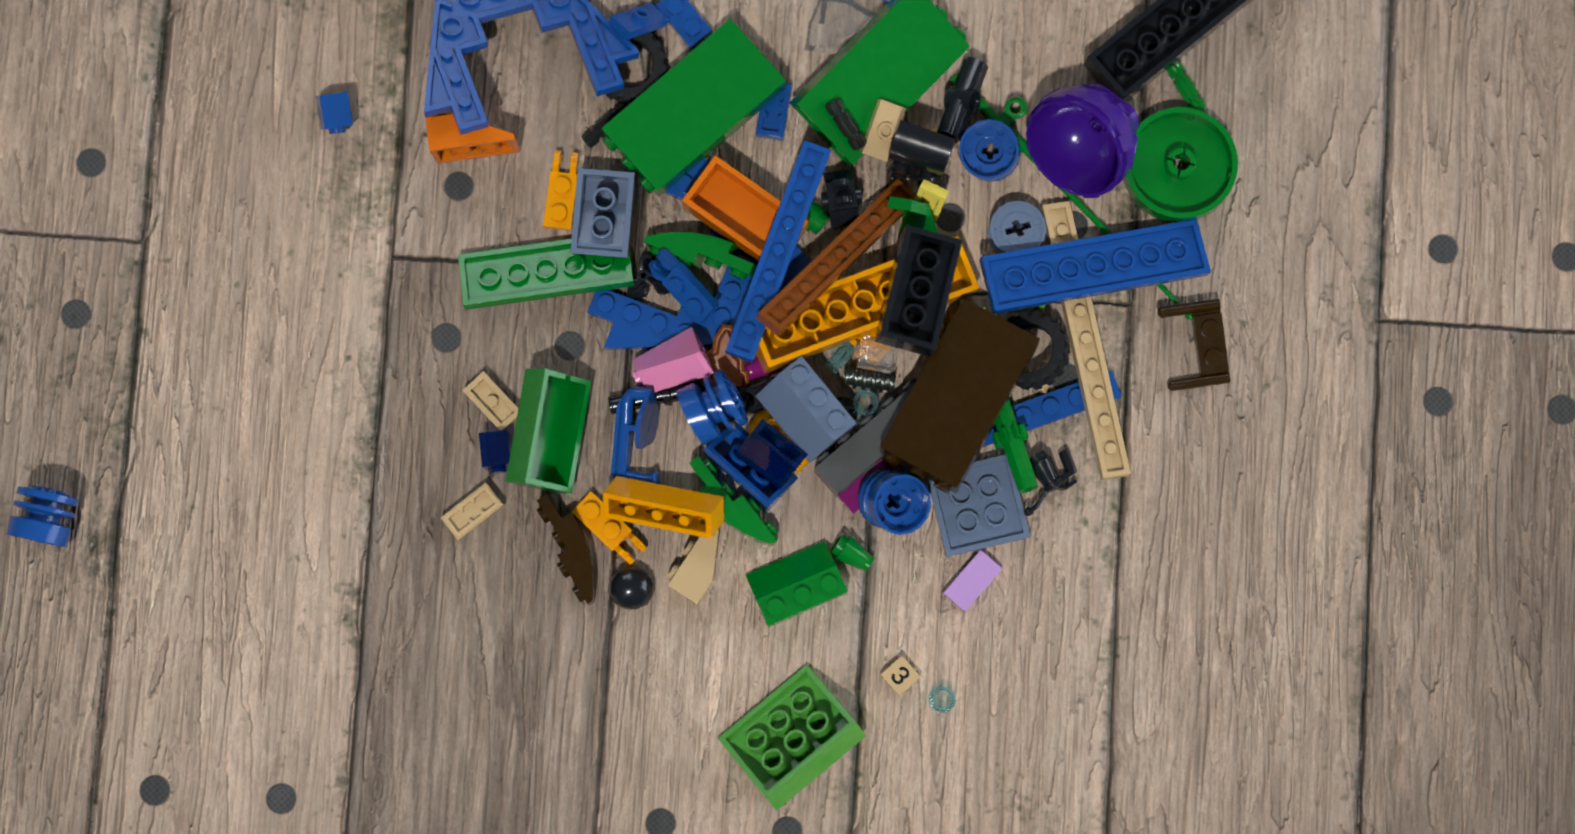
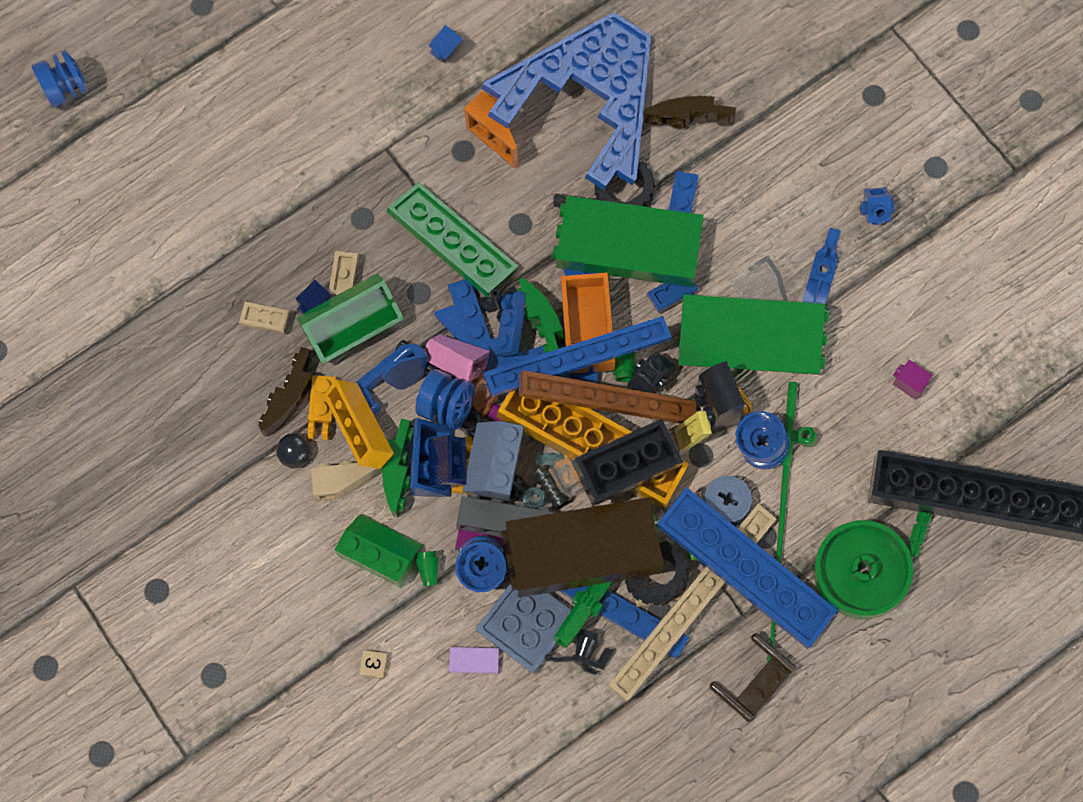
camera: 55 degrees right, 10 degrees down
(561, 194) = (510, 211): light orange hinge -> none
(603, 212) = (517, 242): sand blue slope -> none
(638, 21) = (655, 167): blue plate -> none
(791, 737) = (275, 627): bright green slope -> none
(845, 124) = (698, 336): pearl dark grey axle -> none
(882, 130) = (724, 354): tan plate -> none
(915, 213) = (680, 428): green slope -> none
(939, 708) = (372, 708): clear light blue bush -> none
(963, 98) = (780, 396): black piece -> none
(1083, 139) = (822, 489): dark purple rock -> none

